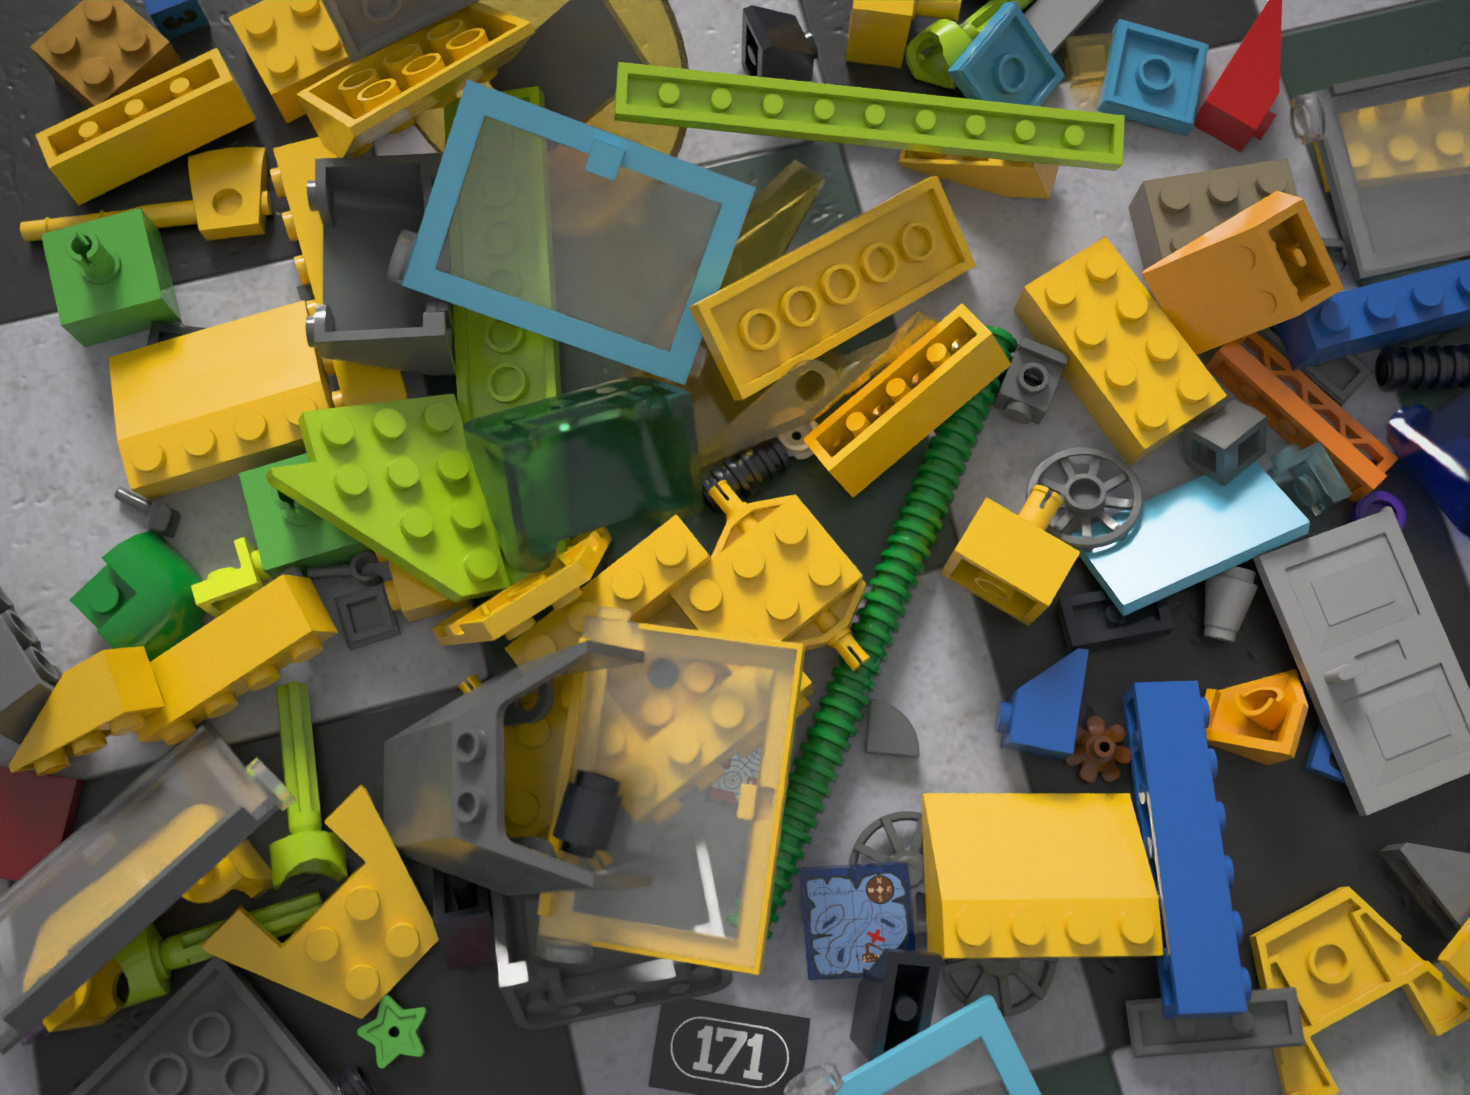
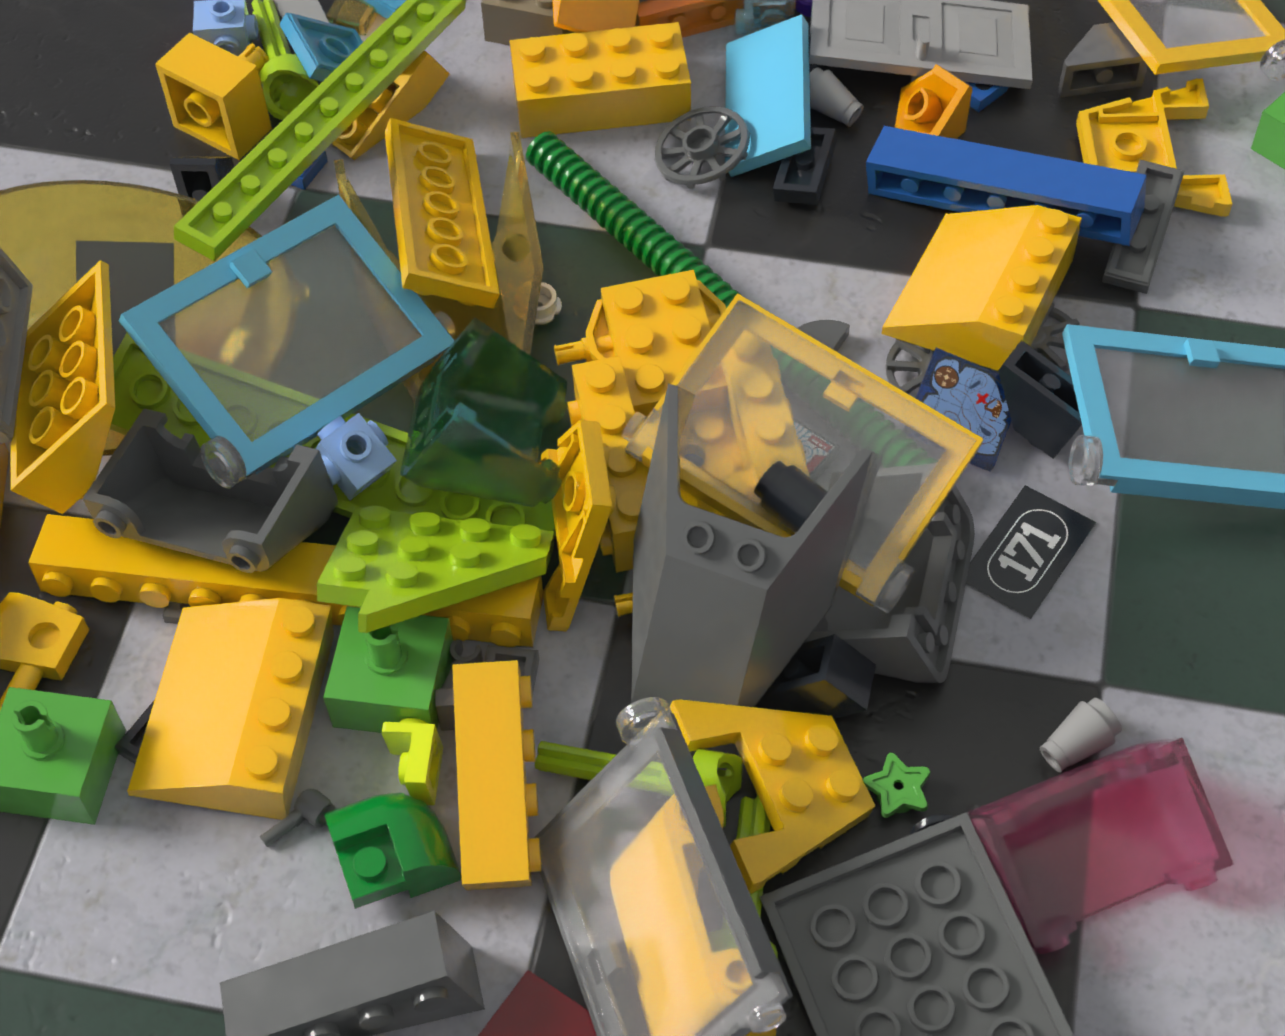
camera: 60 degrees left, 20 degrees down
(90, 702) = (473, 892): yellow slope -> none
(487, 363) = (354, 453): none -> light blue brick
(747, 471) = (550, 331): black piece -> none
(908, 400) = (564, 205): yellow brick -> none
(1012, 556) = (728, 196): yellow brick -> none
(1038, 365) = (591, 137): dark grey brick -> none
(1045, 711) = (856, 230): blue slope -> none
(1092, 758) = (901, 220): reddish brown plant -> none
(1226, 441) = (709, 46): dark grey brick -> none

